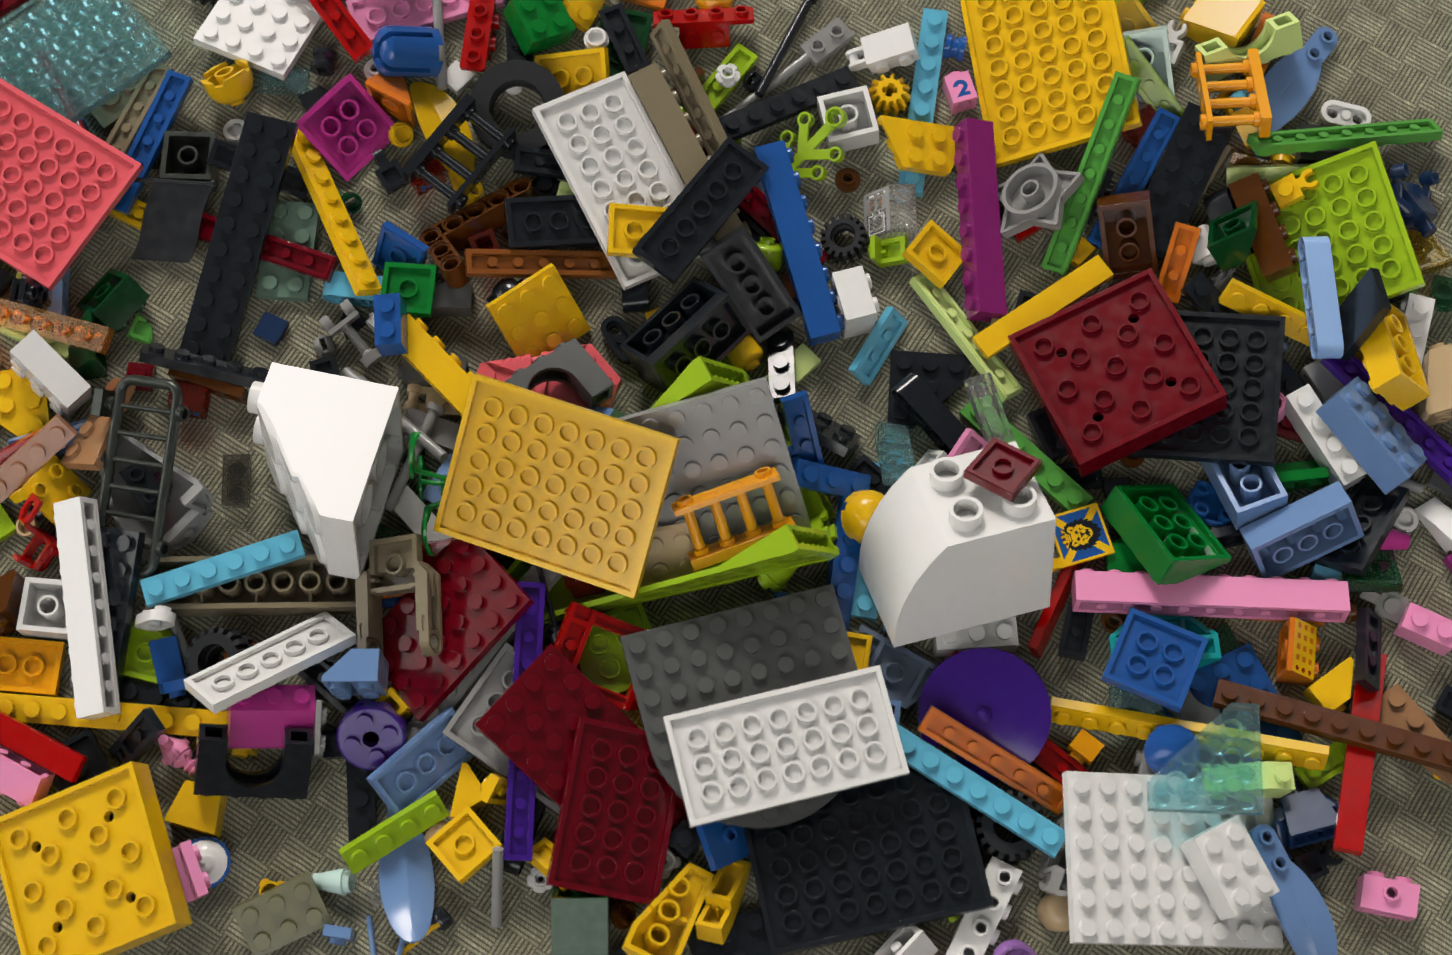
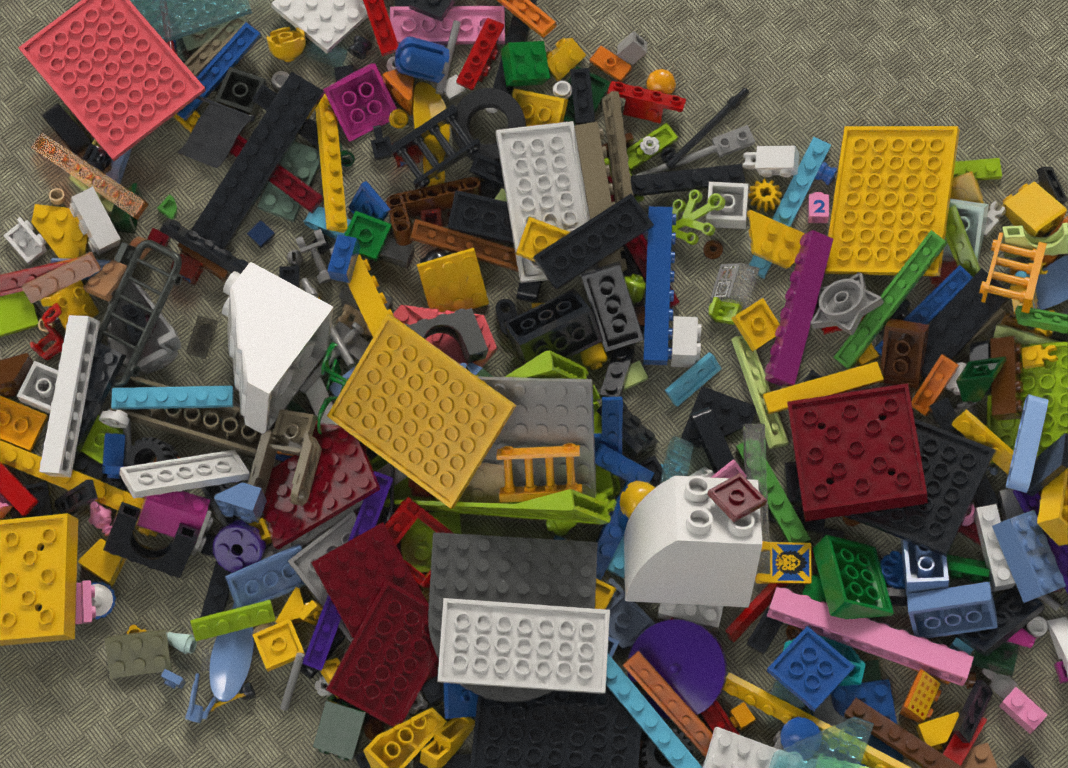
camera: 20 degrees right, 0 degrees up
(114, 299) = (156, 180): dark green slope -> none
(834, 229) = (687, 285): black tyre -> none

